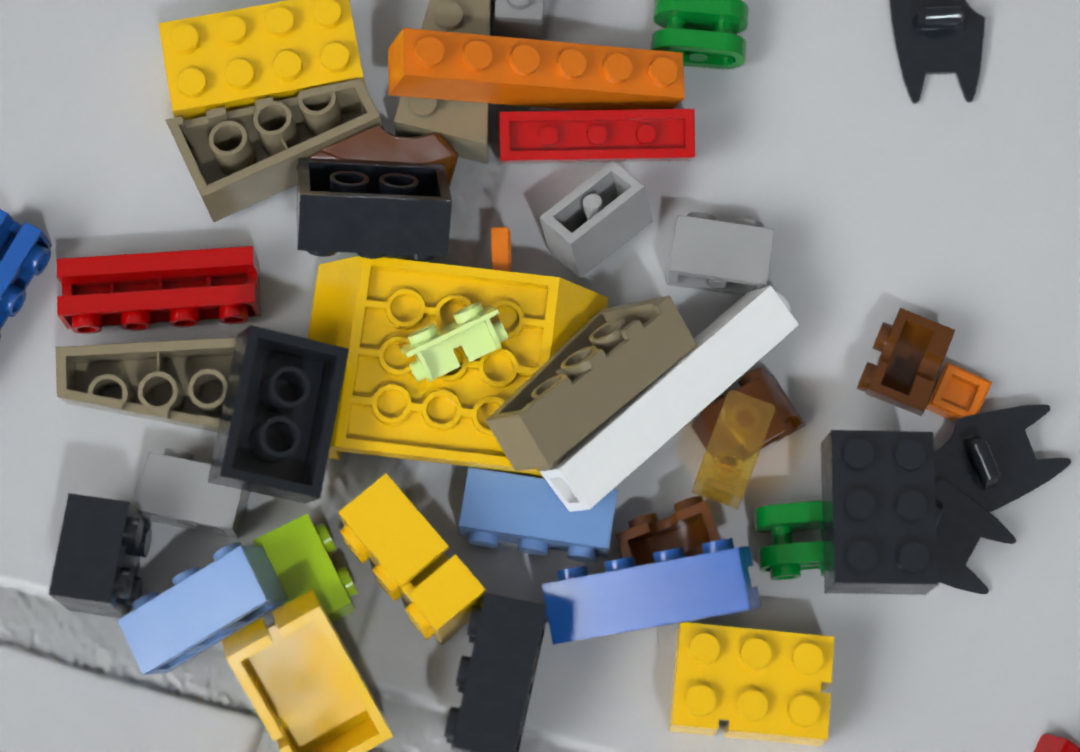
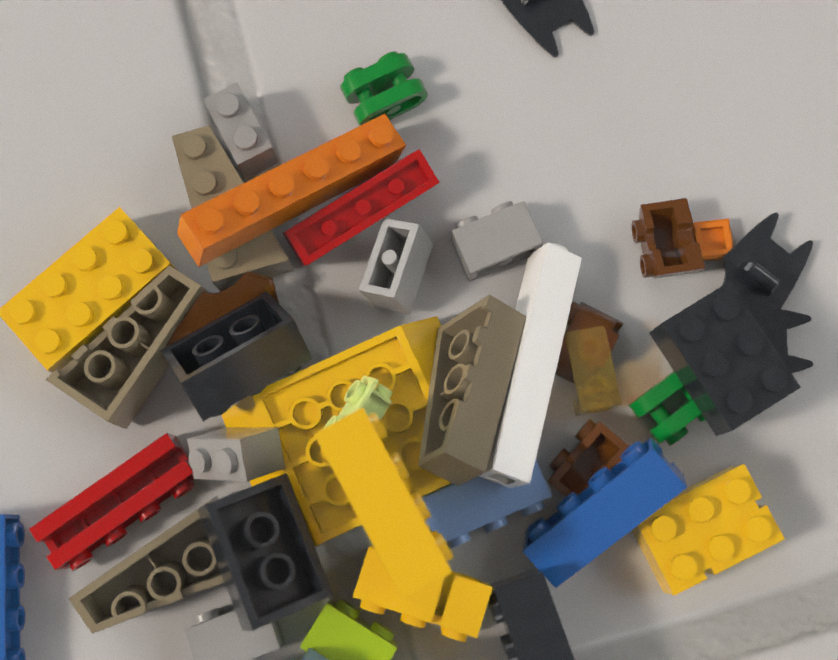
camera: 30 degrees left, 5 degrees up
(310, 306) = (236, 453): none -> light grey brick
(424, 420) = (383, 503): none -> yellow brick
(501, 249) = (344, 329): orange tile -> none

